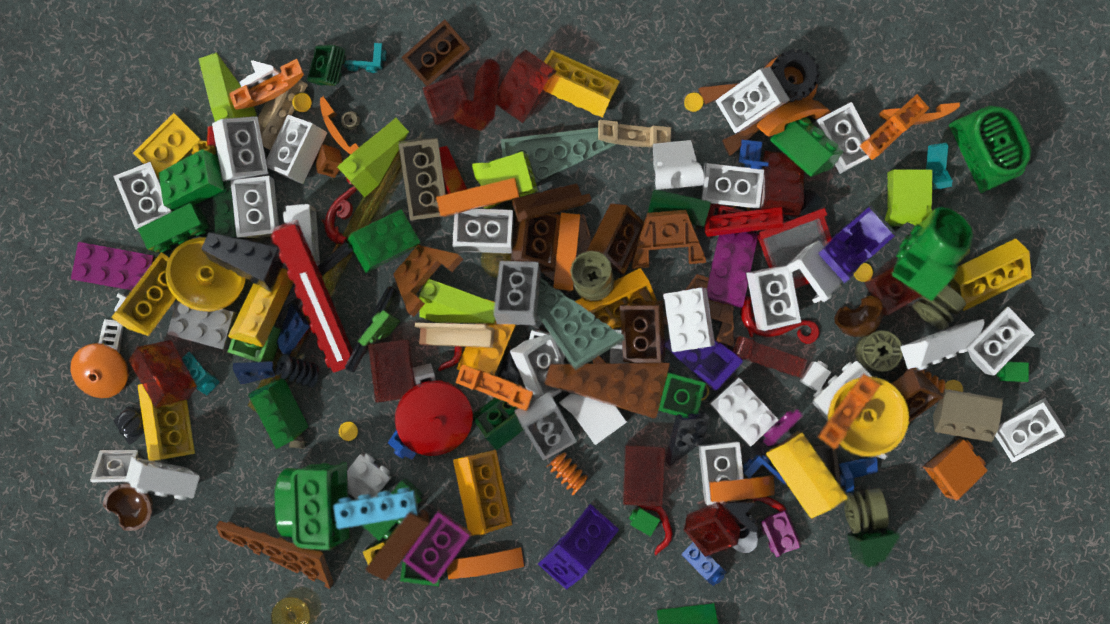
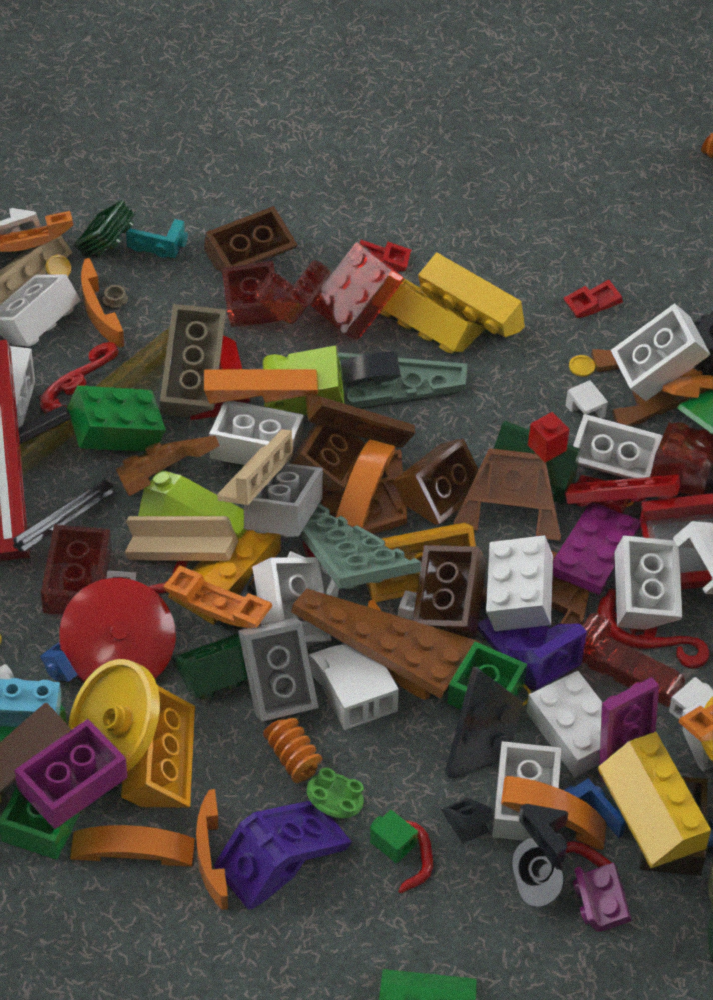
camera: 10 degrees right, 35 degrees down
(328, 160) = (71, 331): dark orange panel -> none
(372, 160) = (127, 328): lime wedge -> none
(381, 328) = (80, 499): bright green wing -> none
(451, 487) = (122, 705): none -> yellow dish
(495, 282) = (259, 470): none -> tan panel
(532, 34) = (393, 254): none -> red slope
(543, 579) = (213, 879): none -> orange slope
(548, 152) = (374, 366): none -> black slope
(588, 267) = (394, 502): olive wheel -> none
(601, 498) = (334, 794): none -> bright green dish
(605, 69) = (472, 296): none -> yellow slope
(632, 135) = (489, 381): tan slope -> none
(643, 475) = (406, 770): clear red brick -> none
(676, 165) = (531, 405): white piece -> none
(687, 496) = (468, 818): none -> black slope
(689, 204) = (548, 437): none -> red brick
(691, 39) = (587, 302): none -> red slope
(704, 140) = (587, 399): none -> white panel
(704, 565) = (478, 914): bracket -> none
(712, 529) = (494, 853): clear red brick -> none
(750, 154) = (651, 421): blue bracket -> none

